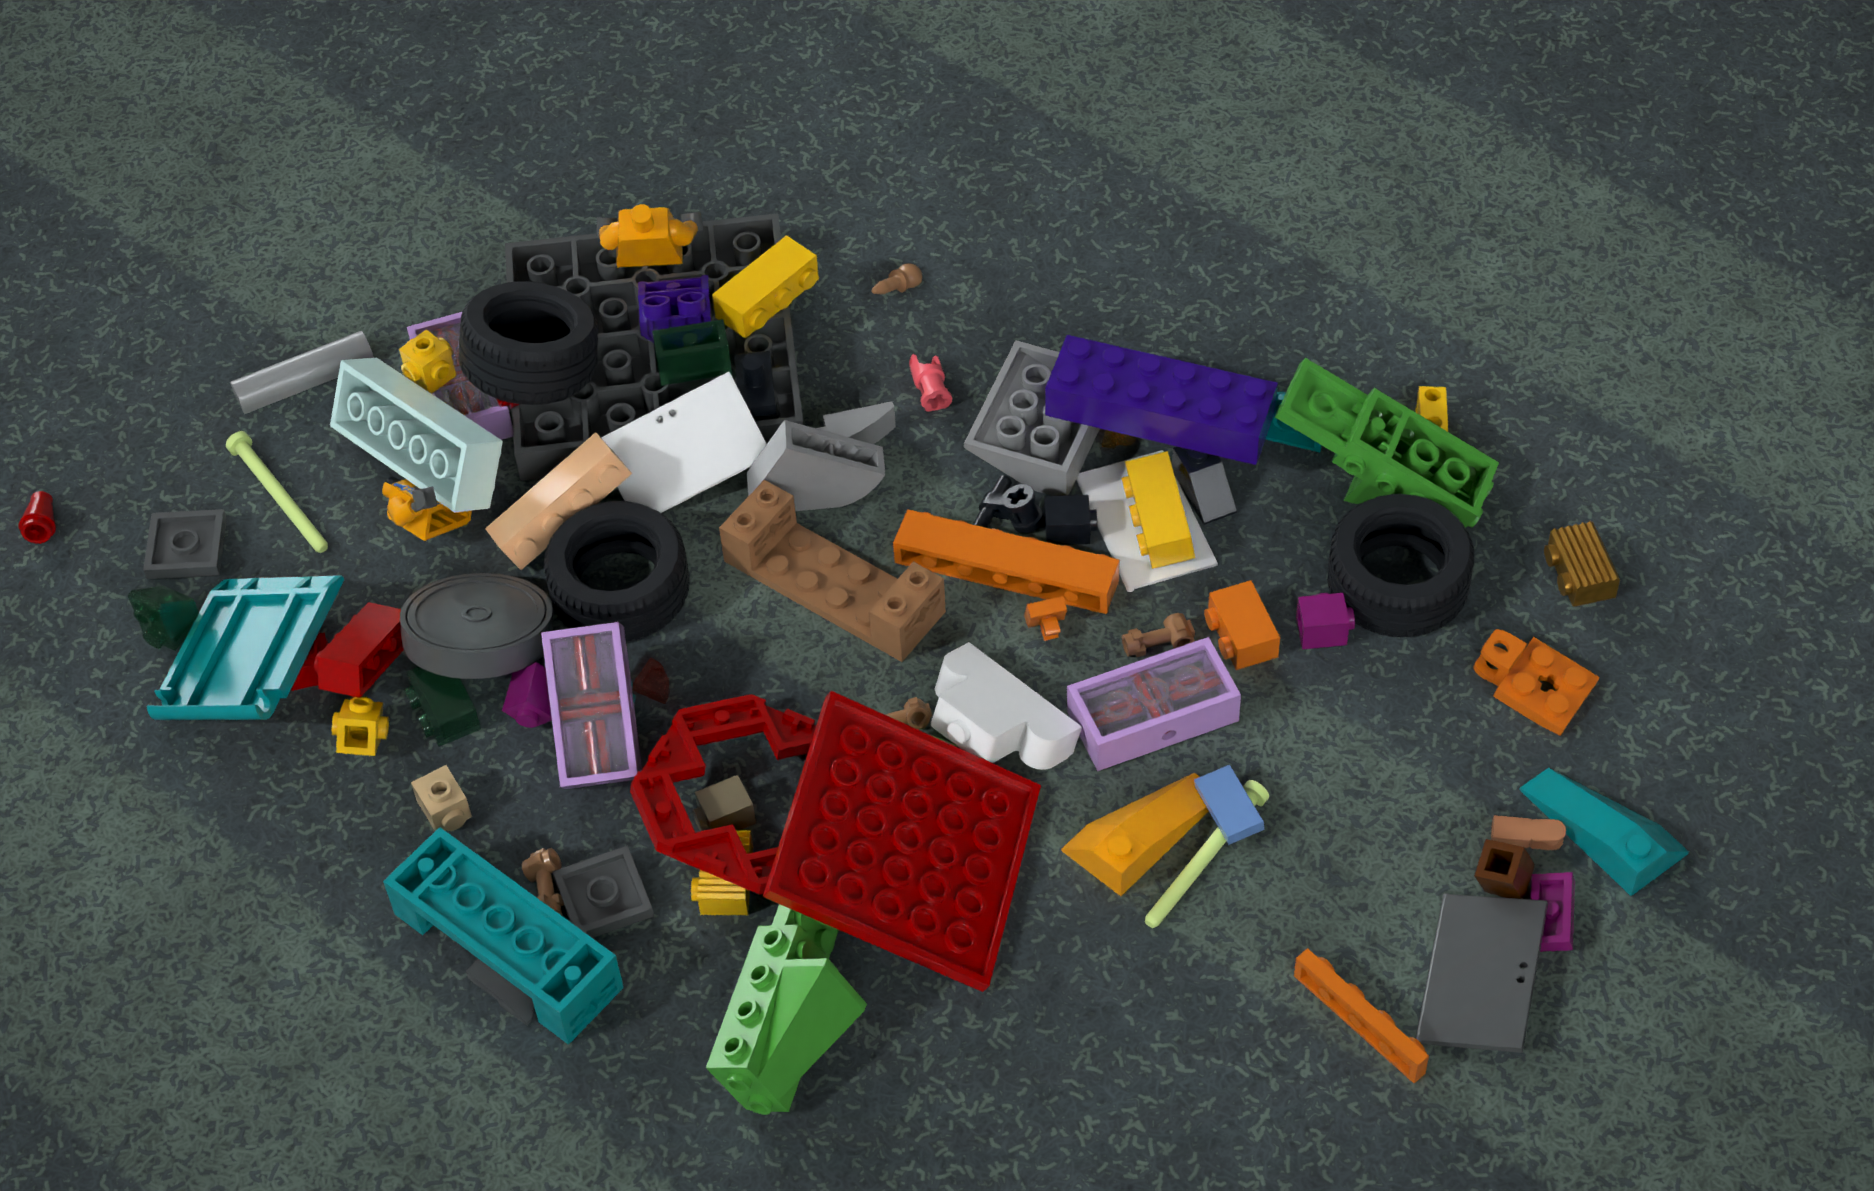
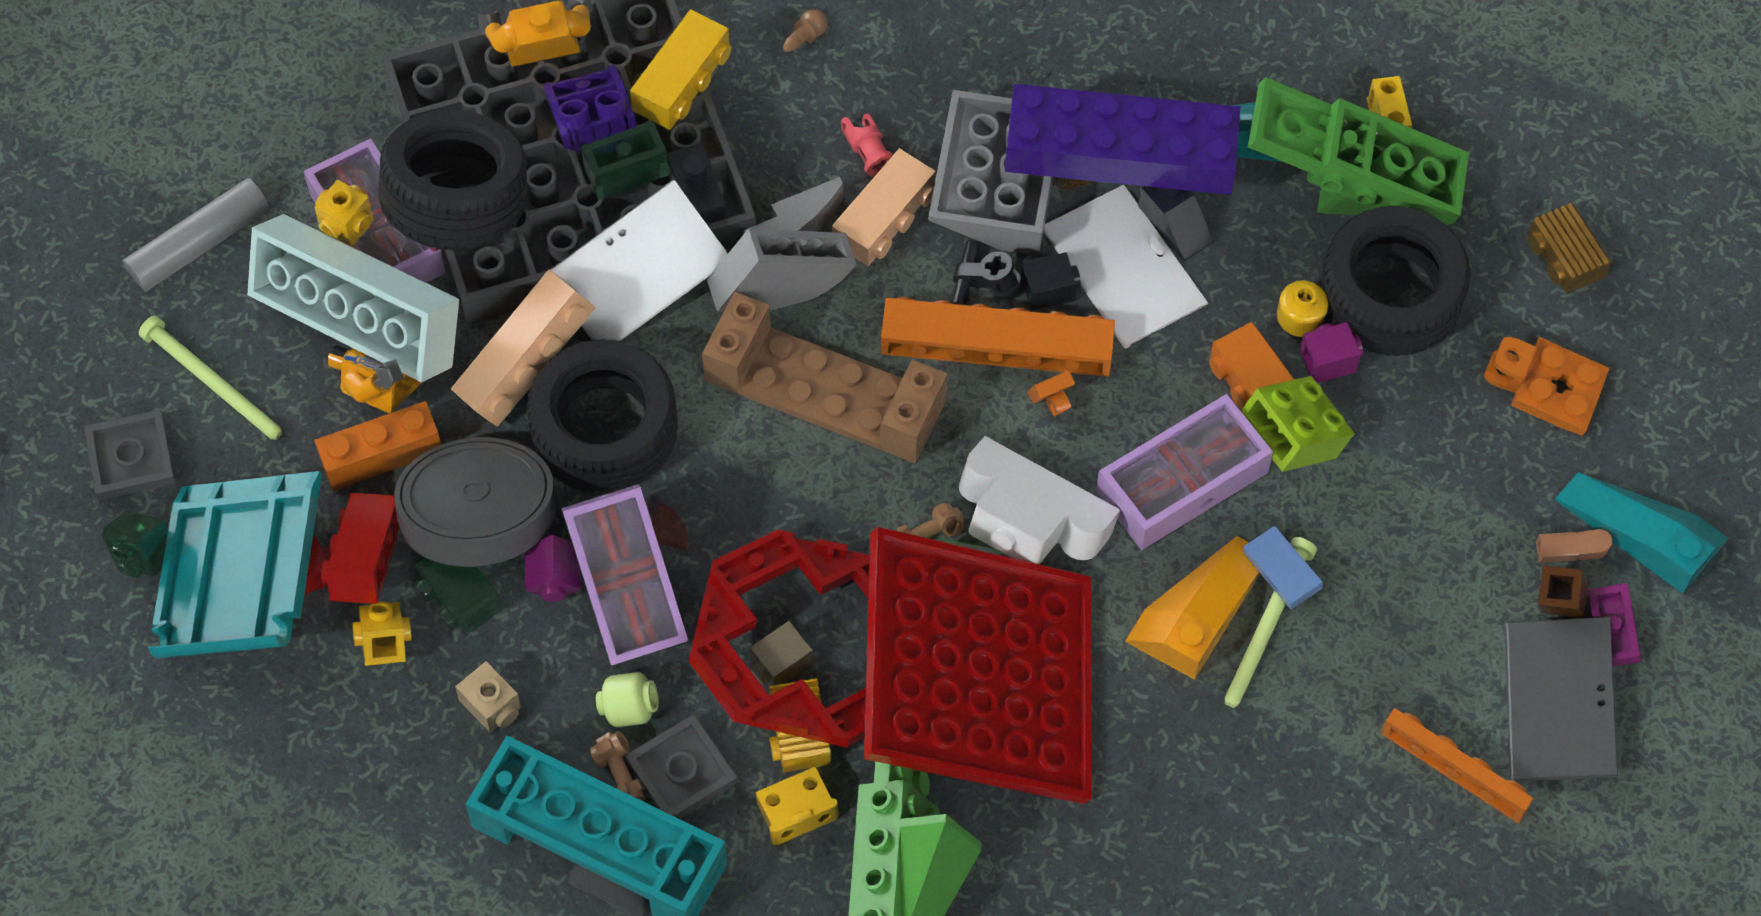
camera: 15 degrees left, 10 degrees up
(403, 567) = (377, 445): none -> orange brick
(570, 823) = (627, 699): none -> yellowish green head
(702, 945) = (796, 806): none -> yellow piece
(928, 435) = (886, 206): none -> light nougat brick
(1158, 510) = (1139, 257): yellow brick -> none
(1176, 630) = (1185, 386): medium nougat bar -> none
(1274, 676) = (1297, 423): none -> lime brick
(1304, 575) = (1302, 308): none -> yellow head

